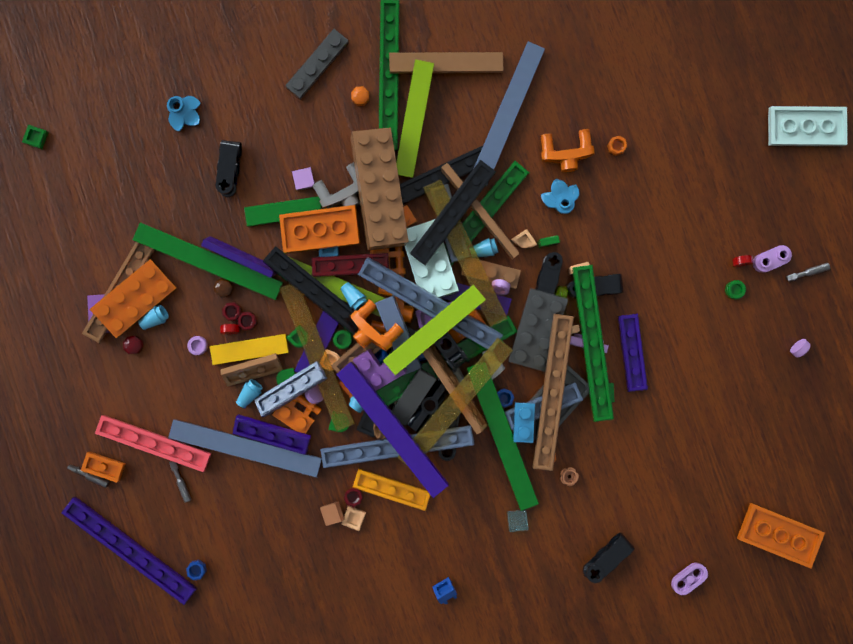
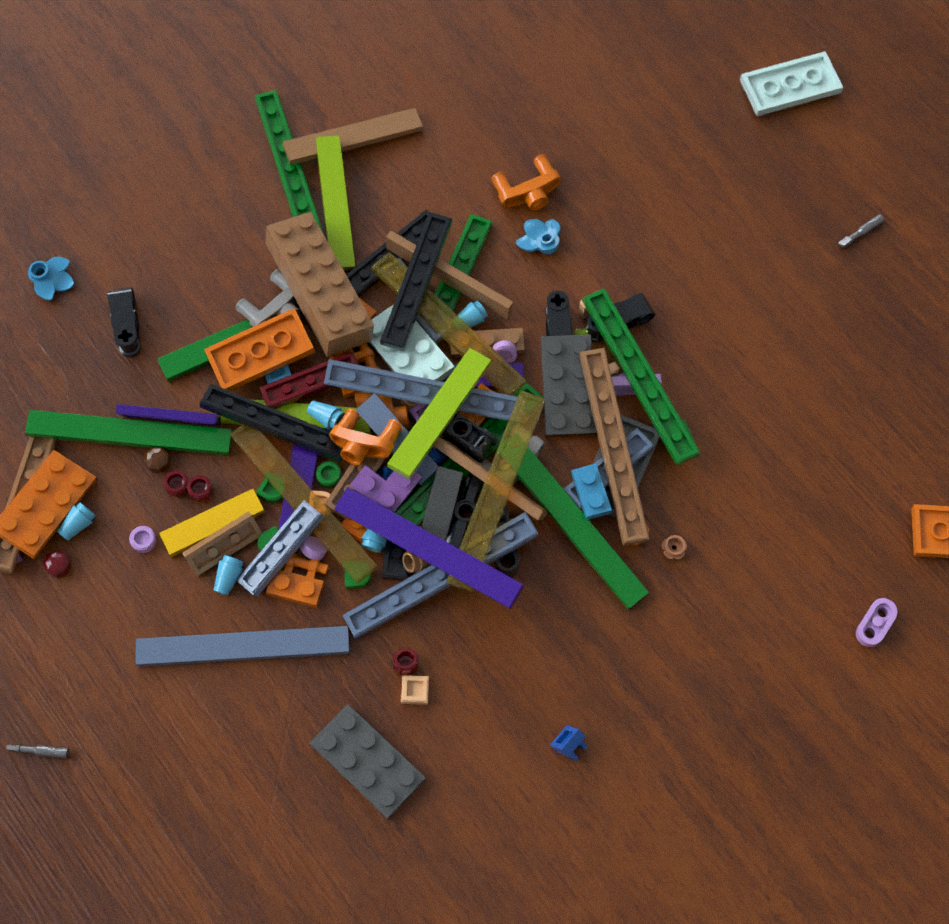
camera: 15 degrees left, 20 degrees down
(103, 467) = (56, 730): orange plate -> none
(129, 550) = (121, 833): dark purple tile -> none
(153, 443) = (117, 677): coral plate -> none
(180, 482) = (167, 719): flat silver piece -> none
(196, 570) = (222, 827): blue tile -> none
(229, 329) = (179, 504): red tile -> none
(271, 434) = (272, 616): dark purple tile -> none
(303, 178) = (221, 307): lavender tile -> none
(306, 556) = (367, 761): none -> dark grey plate
(317, 64) = (199, 182): dark grey plate -> none
(332, 513) = (384, 691): nougat tile -> none
(360, 96) = (262, 199): orange tile -> none
(391, 489) = (453, 637): light orange tile -> none
(506, 397) = (560, 475): blue tile -> none
(510, 105) = (444, 153): sand blue tile -> none
(517, 520) = (630, 623): clear light blue tile -> none
(524, 240) = (516, 294): light nougat tile -> none
(548, 241) = (543, 286): green tile -> none
(608, 558) = (763, 630): black piece -> none
(617, 145) = (584, 164): orange tile -> none
(632, 352) = (694, 380): dark purple tile -> none
(735, 289) = (786, 274): green tile -> none
(742, 261) = (780, 240): red tile -> none
(773, 258) = (815, 228): lavender plate -> none
(800, 348) = (889, 312): lavender tile -> none

